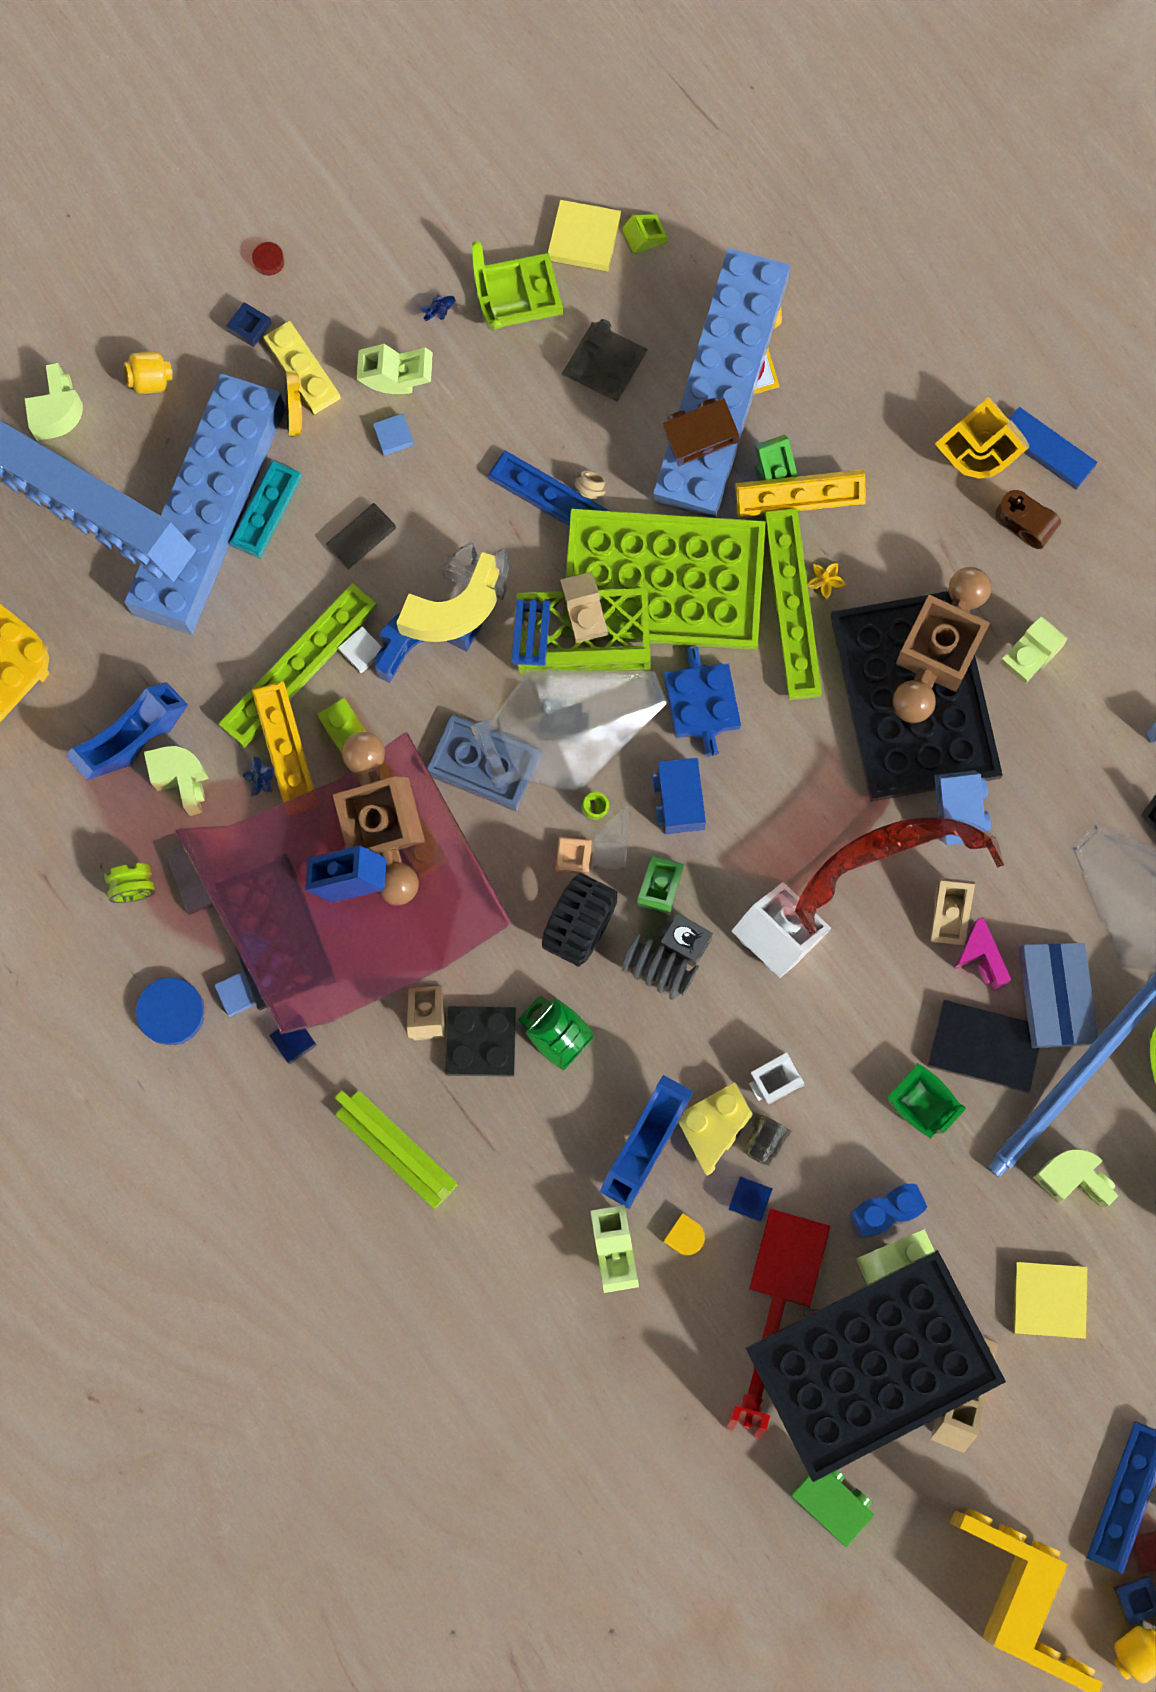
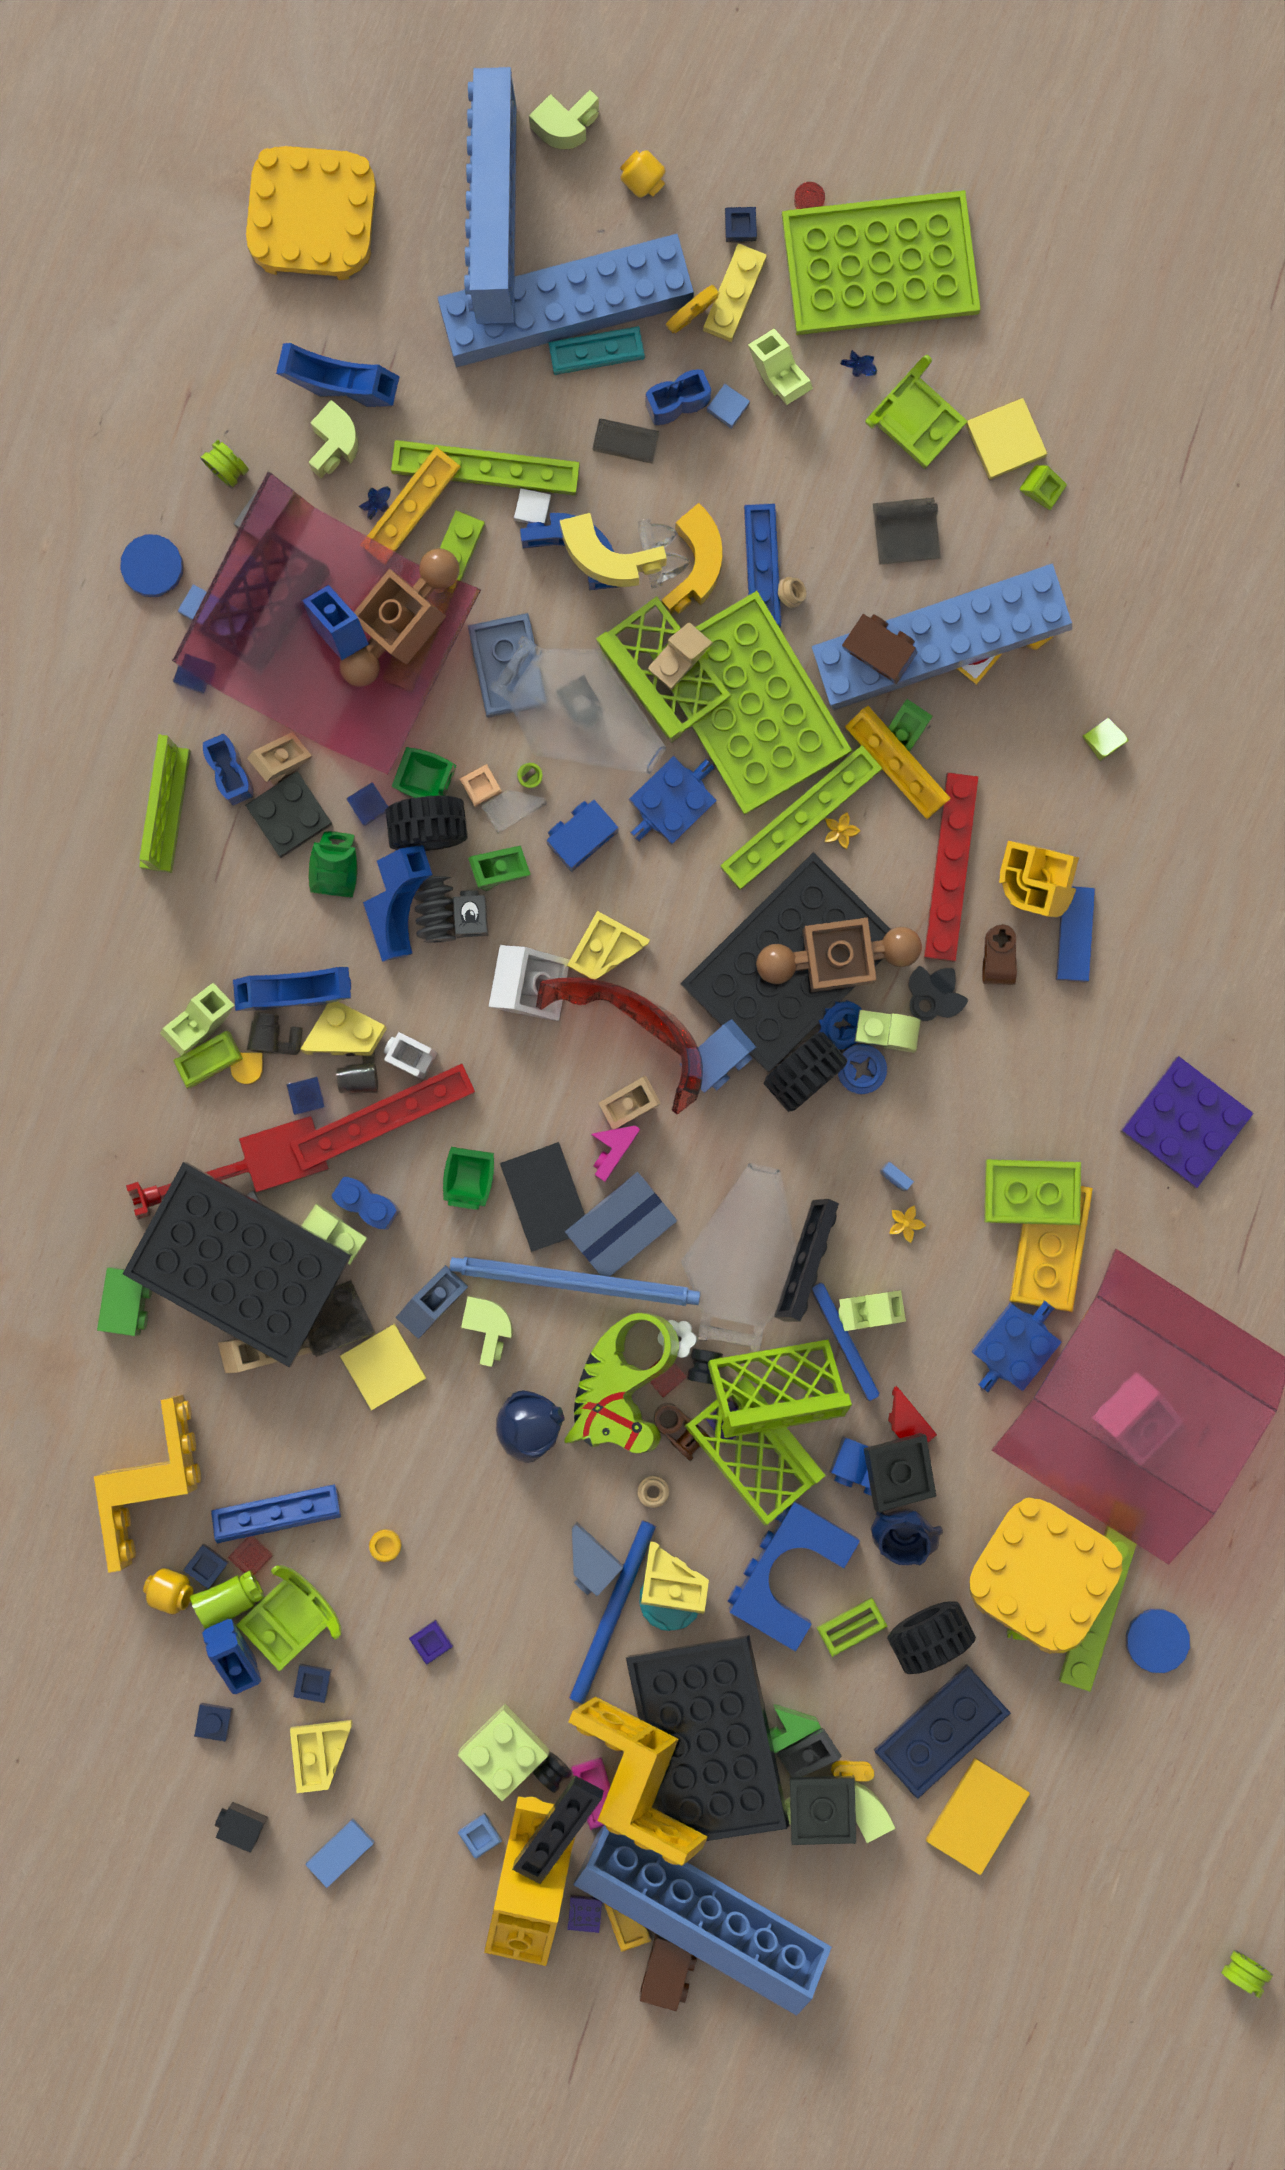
camera: 45 degrees right, 10 degrees up
(358, 465) = (684, 395): none -> blue brick
(364, 237) = (880, 262): none -> lime plate
(395, 1064) = (229, 775): none -> blue brick
(504, 528) = (704, 540): none -> yellow arch
(522, 963) = (367, 804): none -> clear blue plate
(531, 895) = (423, 774): none -> green piece
(532, 608) = (651, 616): blue tile -> none
(633, 1009) = (389, 911): none -> blue arch
(655, 1267) = (208, 1059): none -> lime tile
(668, 1197) = (265, 1036): none -> clear smoke piece
(793, 843) = (605, 947): none -> light yellow wing
(817, 1143) = (382, 1117): none -> red plate
(896, 318) = (1105, 739): none -> slope
(921, 510) = (951, 867): none -> red plate
(992, 1309) = (340, 1321): none -> clear smoke hinge
(1011, 691) = (846, 1035): none -> blue gear
(1019, 1213) = (431, 1302): none -> sand blue slope
(1023, 591) = (936, 990): none -> black plate
(1027, 739) = (805, 1071): none -> black tyre
(1055, 684) = (876, 1065): none -> blue gear

